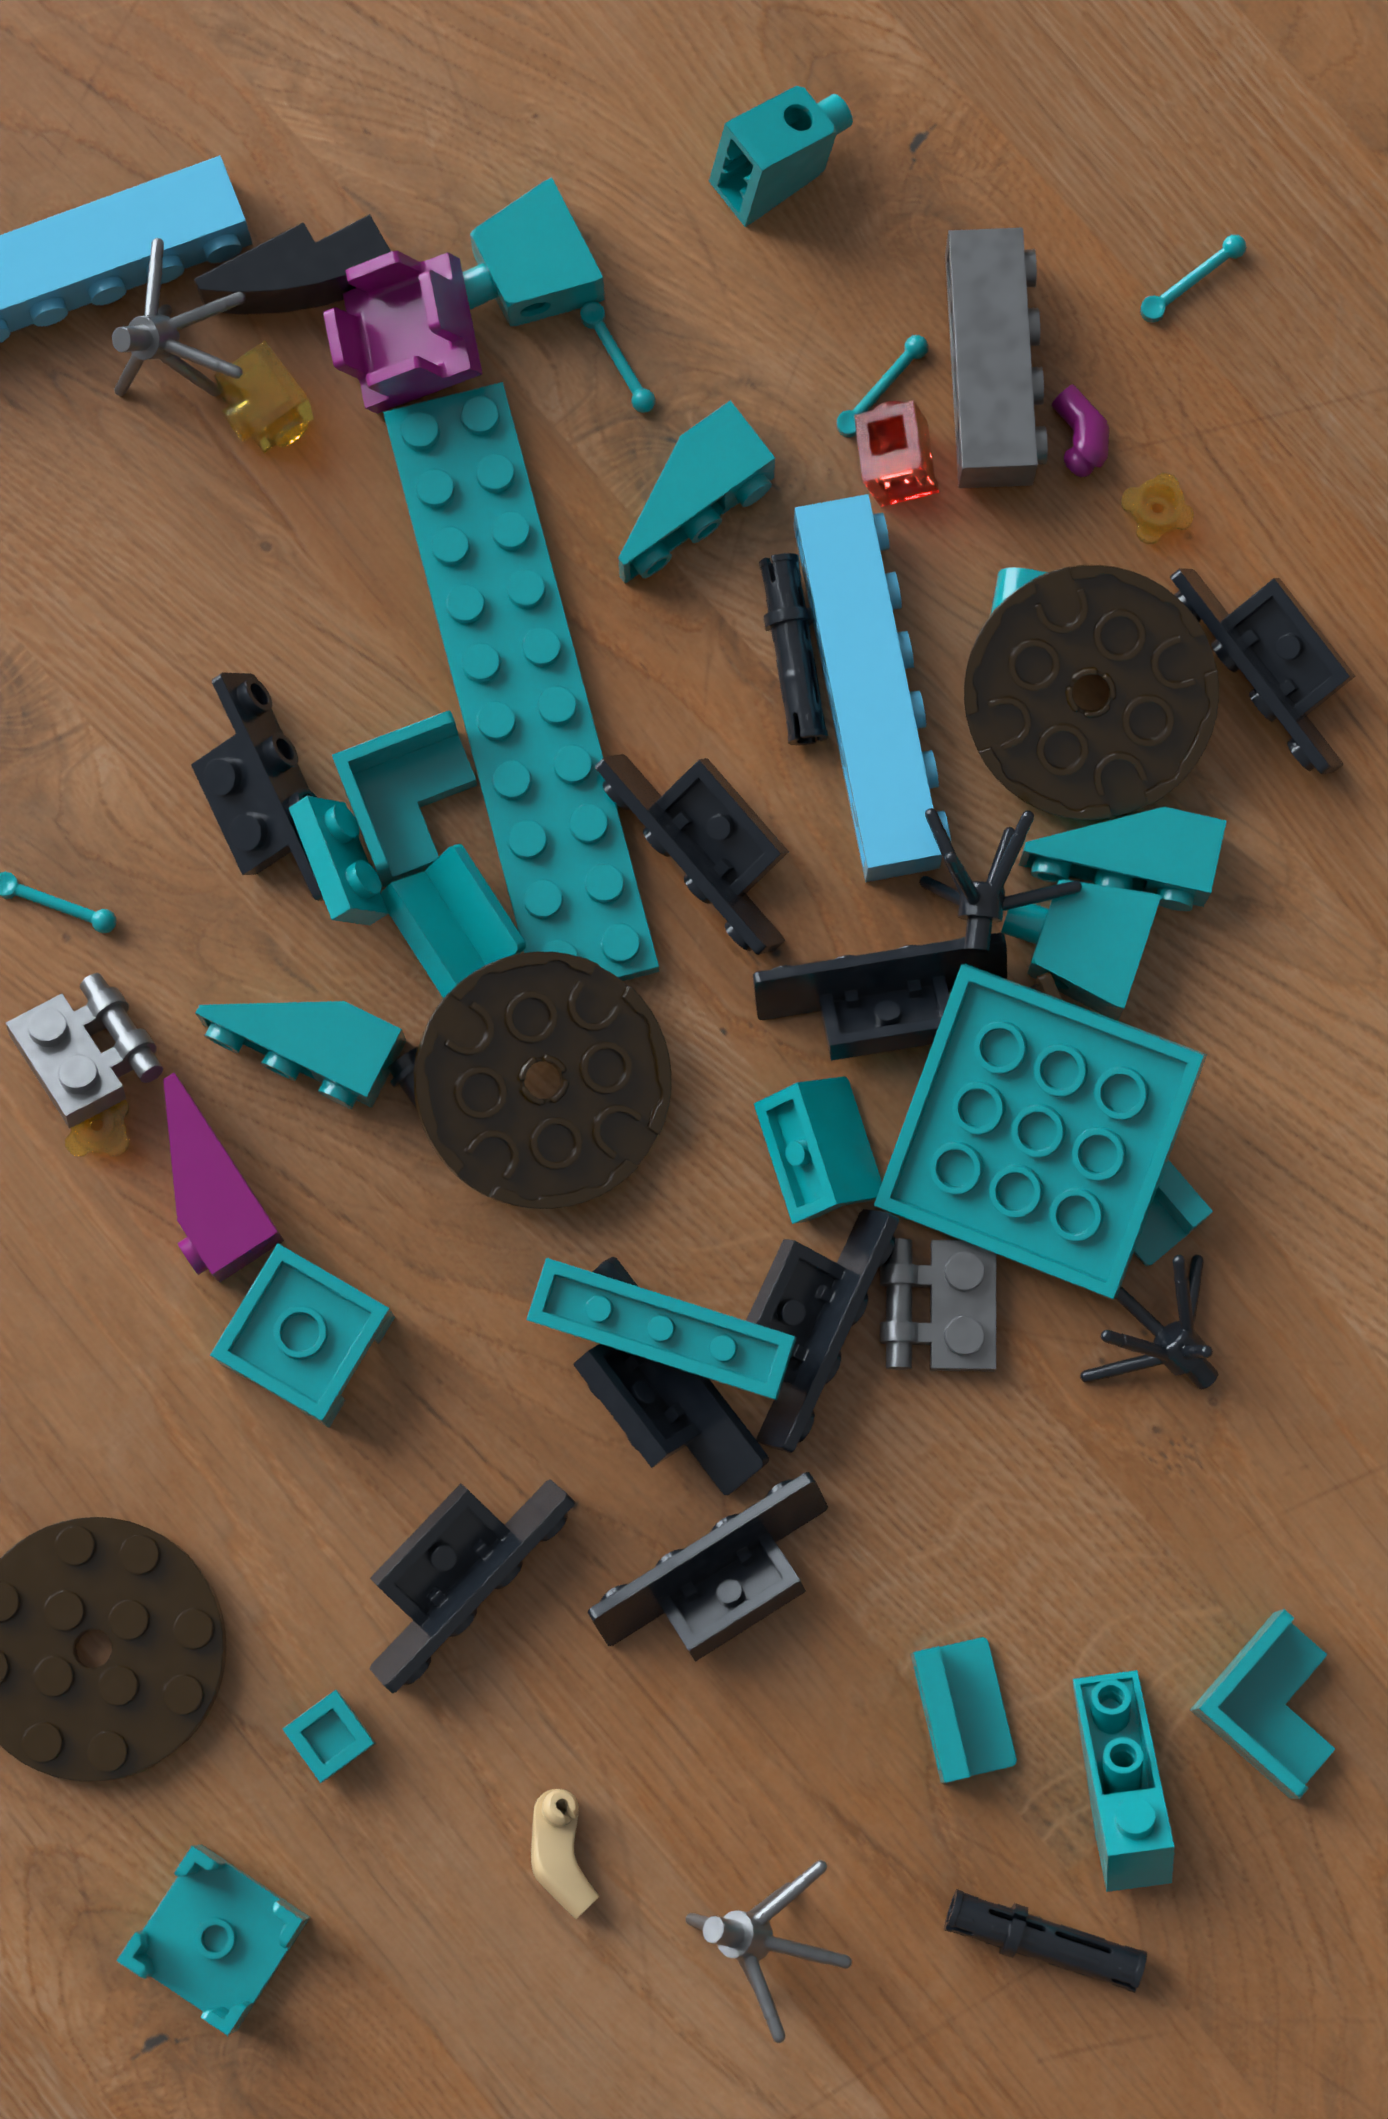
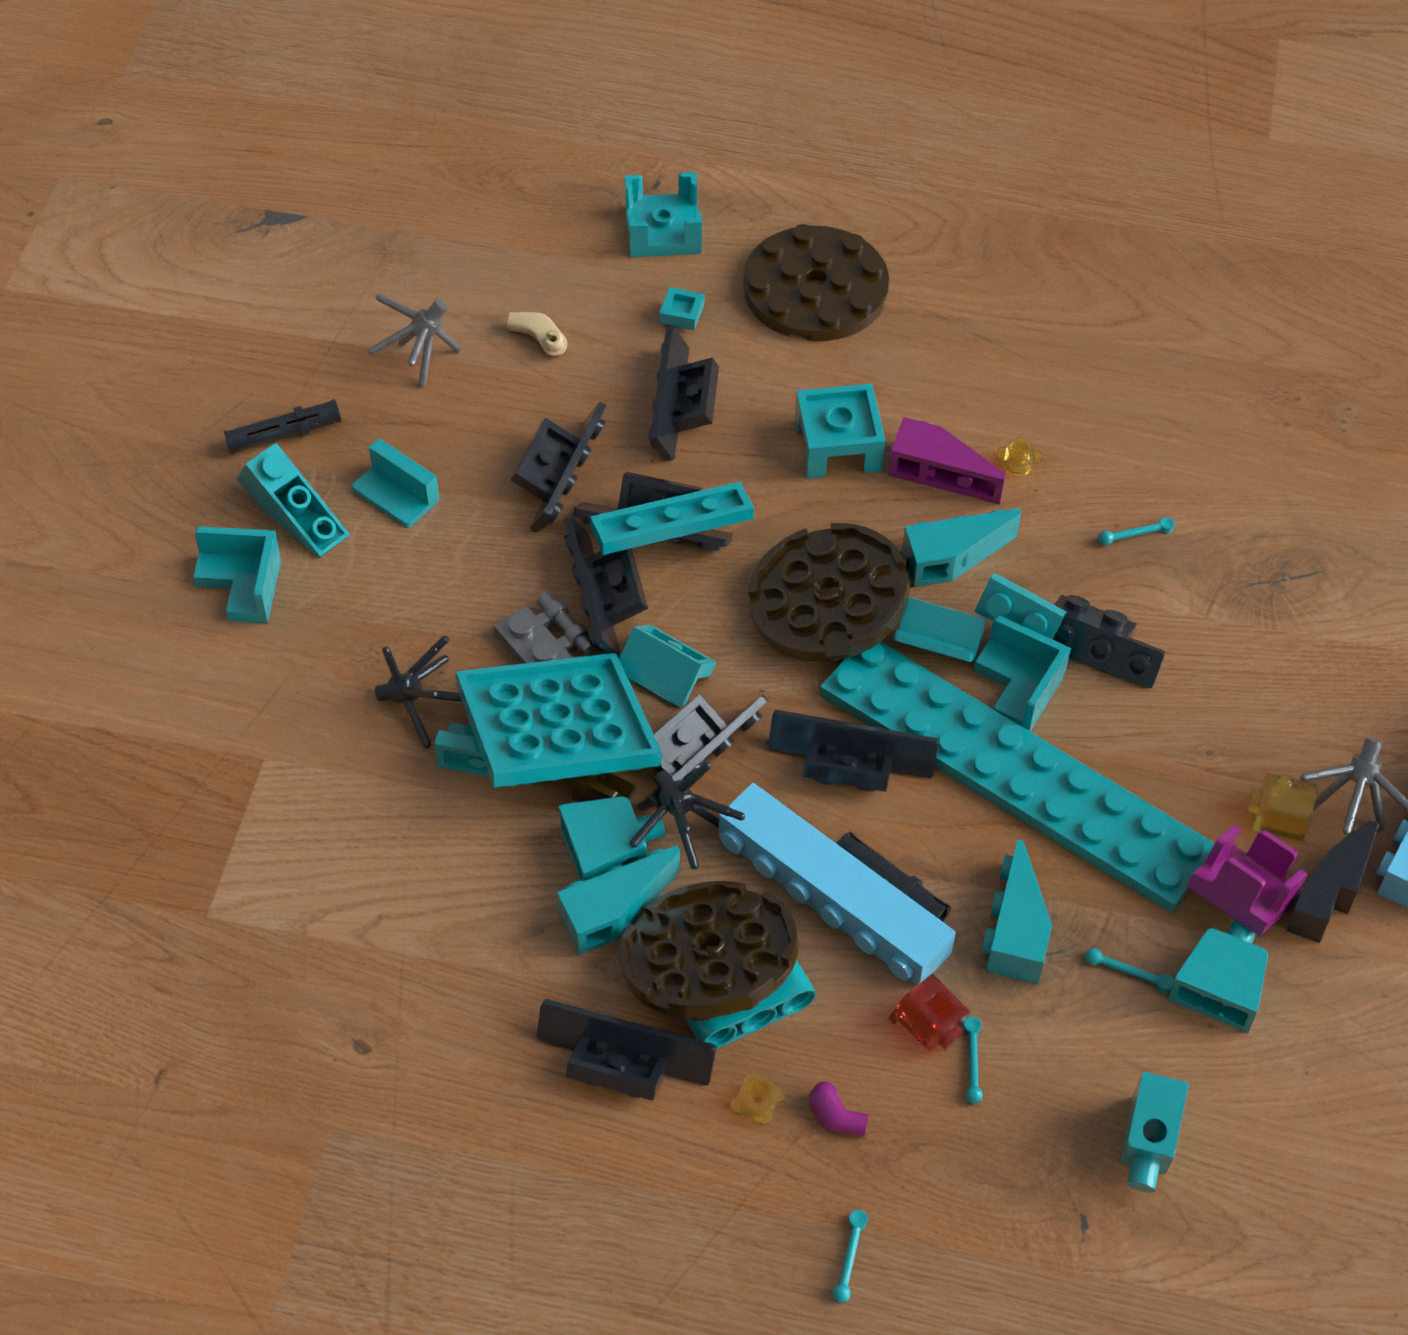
camera: 140 degrees right, 25 degrees down
(67, 1059) = (1061, 466): plate -> none
(992, 358) = (923, 1102): flat silver brick -> none

